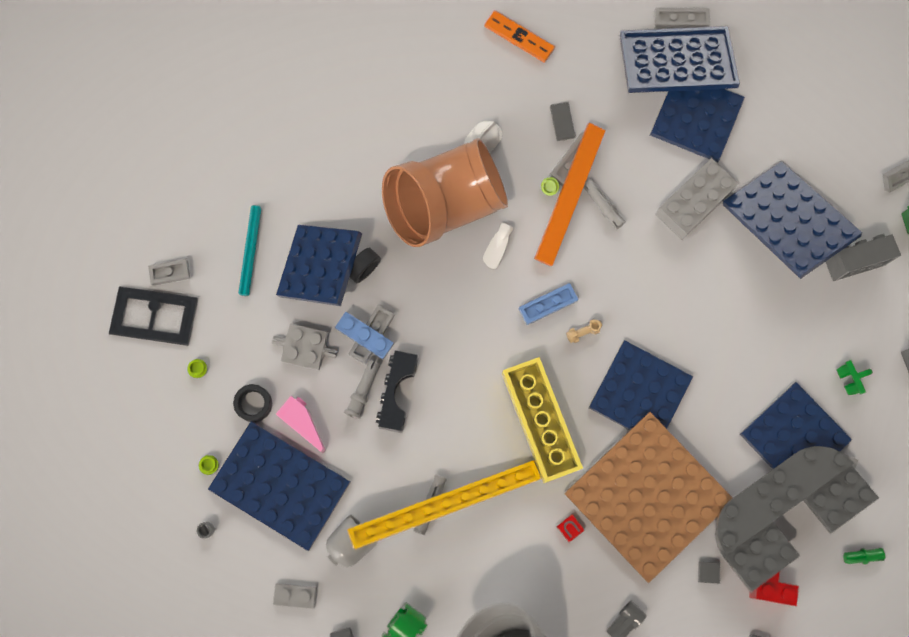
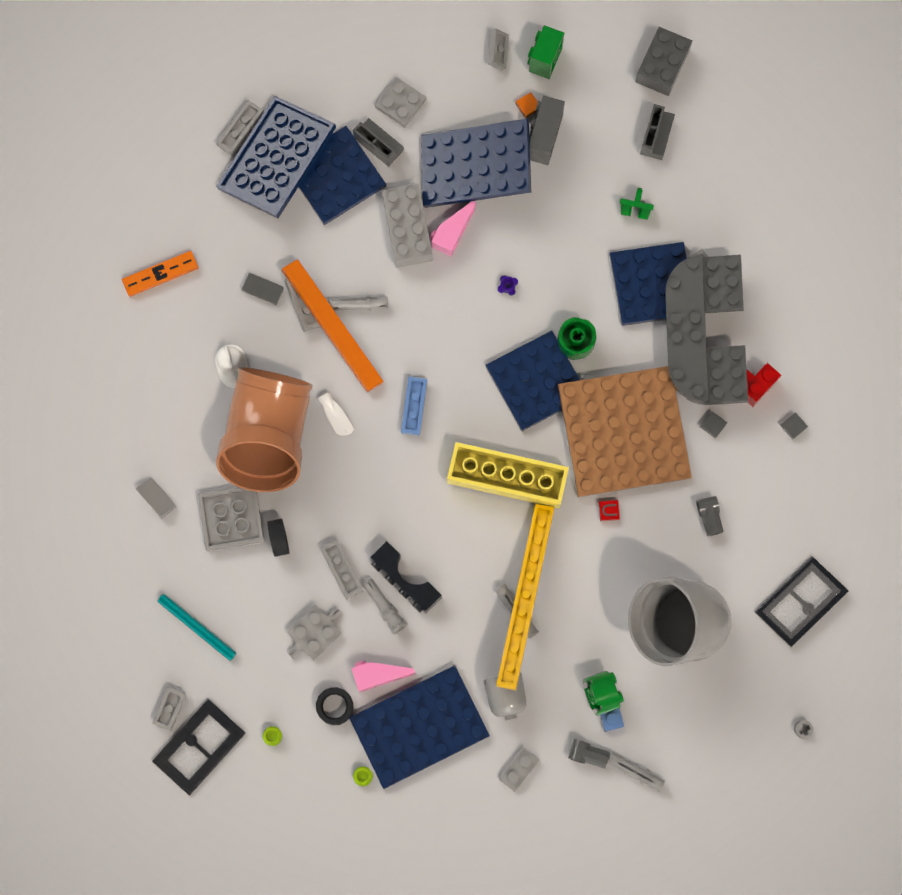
camera: 55 degrees left, 0 degrees up
(202, 530) = (416, 814): dark grey hinge -> none
(319, 264) = (253, 574): dark blue plate -> none
(334, 150) = (156, 498): none -> light grey slope
(357, 211) = (230, 518): none -> light grey plate
(364, 335) = (340, 575): medium blue plate -> none
(550, 186) = (313, 337): lime plate -> none
(593, 327) = (458, 382): tan bar -> none
(710, 314) = (507, 280): none -> dark purple plate
(710, 396) = (579, 328): none -> green brick
(717, 237) = (451, 231): none -> bright pink slope
(750, 130) = (377, 141): none -> dark grey piece
(796, 127) = (400, 102): none -> light grey plate
(864, 556) = (778, 296): green axle -> none
(871, 229) = (527, 105): none -> orange tile

